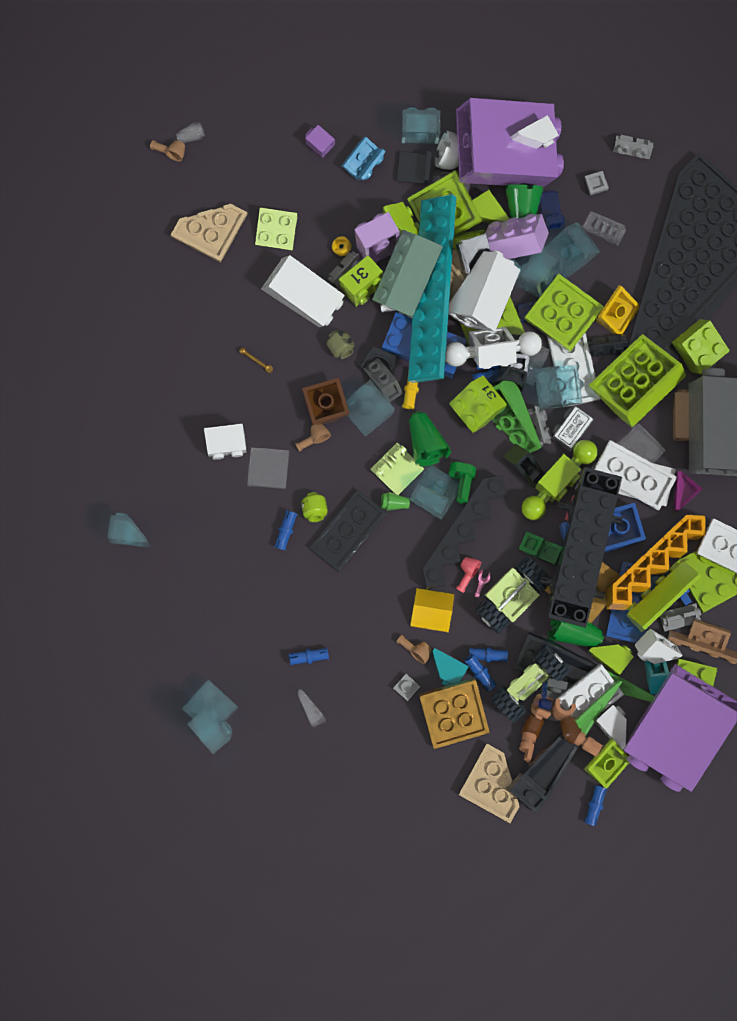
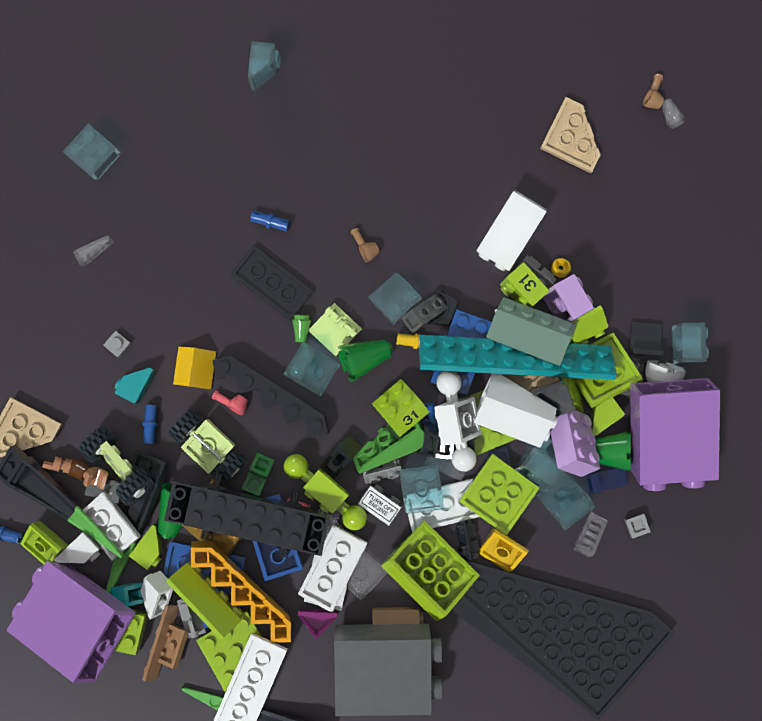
camera: 90 degrees right, 5 degrees up
(210, 728) = (61, 147): clear light blue brick -> none
(225, 441) = (356, 157): white slope -> none
(268, 468) = (333, 202): clear tile -> none
(269, 368) = (433, 200): pearl gold hinge -> none
(276, 228) = (576, 202): yellowish green hinge -> none
(308, 656) = (145, 247): blue pin -> none
(314, 507) = (293, 248): lime head -> none
(319, 140) = (669, 242): medium lavender brick -> none
(326, 402) = (399, 254): reddish brown slope -> none
(340, 344) = (459, 269): olive head -> none
(363, 159) = (652, 287): dark azure bracket -> none
(420, 652) = (152, 357): medium nougat bar -> none
(454, 713) = (88, 390): pearl gold plate -> none
(466, 474) = (330, 398): green piece -> none
(480, 672) = (130, 416): blue pin -> none
(482, 581) = (223, 416): bright pink hand -> none
(537, 134) = (684, 462): white slope -> none
(543, 702) = (97, 479): clear blue hand -> none
(571, 730) = (67, 508): nougat piece -> none
(625, 145) = (678, 555): light grey hinge -> none
(700, 346) = (468, 636): lime brick -> none

